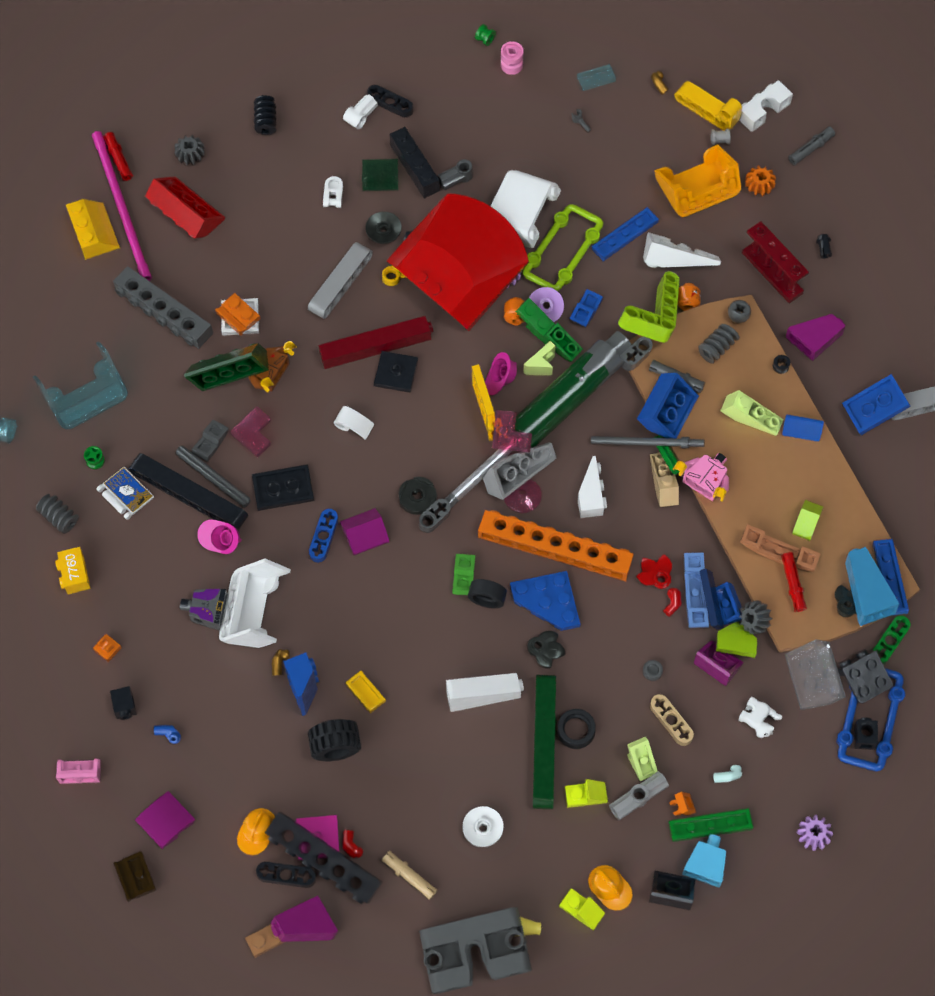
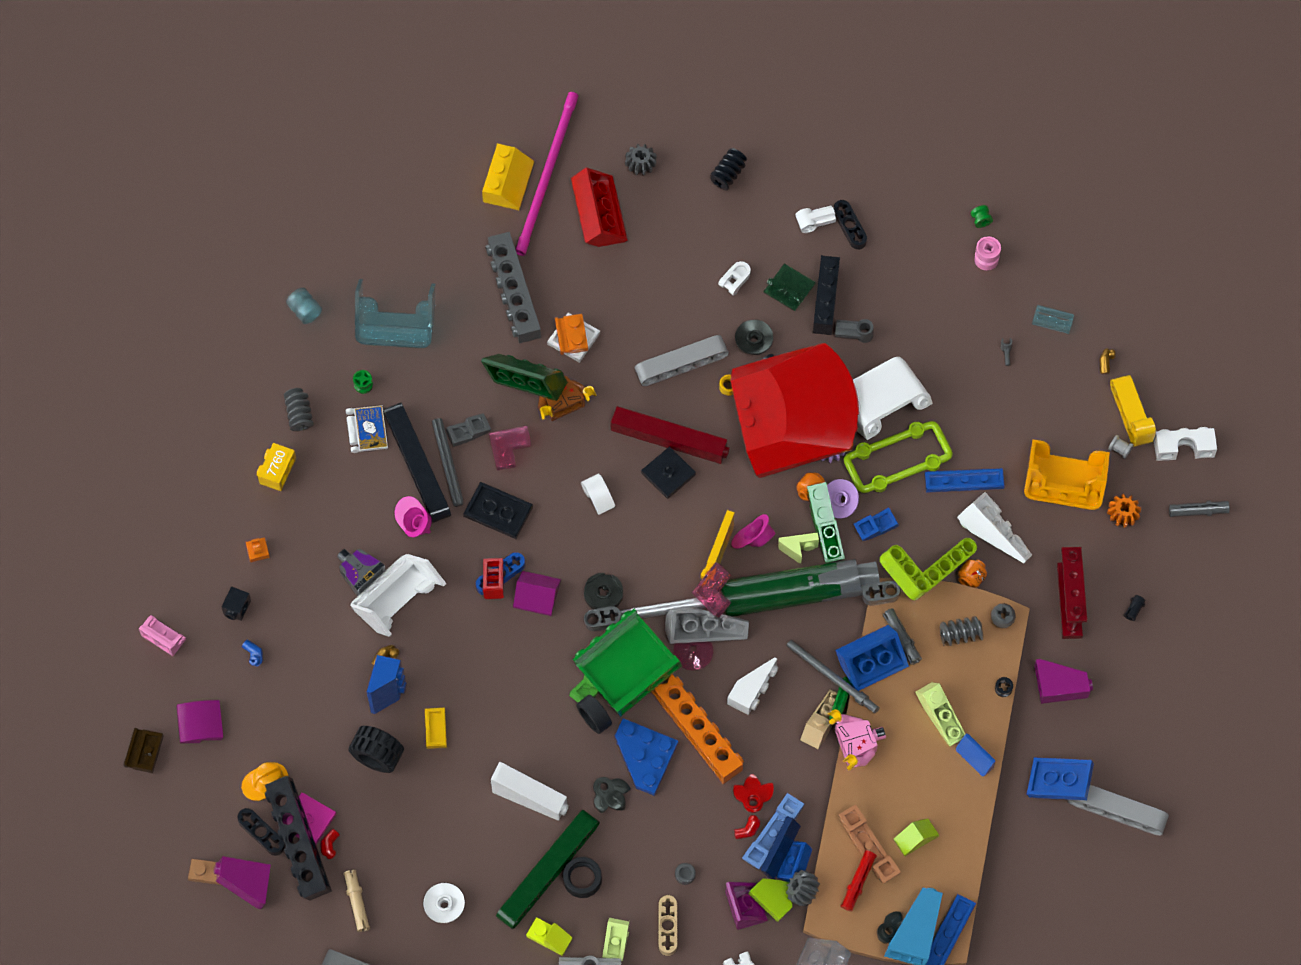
camera: 35 degrees right, 0 degrees up
(116, 151) = (578, 119): red pin -> none
(330, 550) = (493, 590): none -> red slope
(482, 536) = (626, 662): none -> green panel

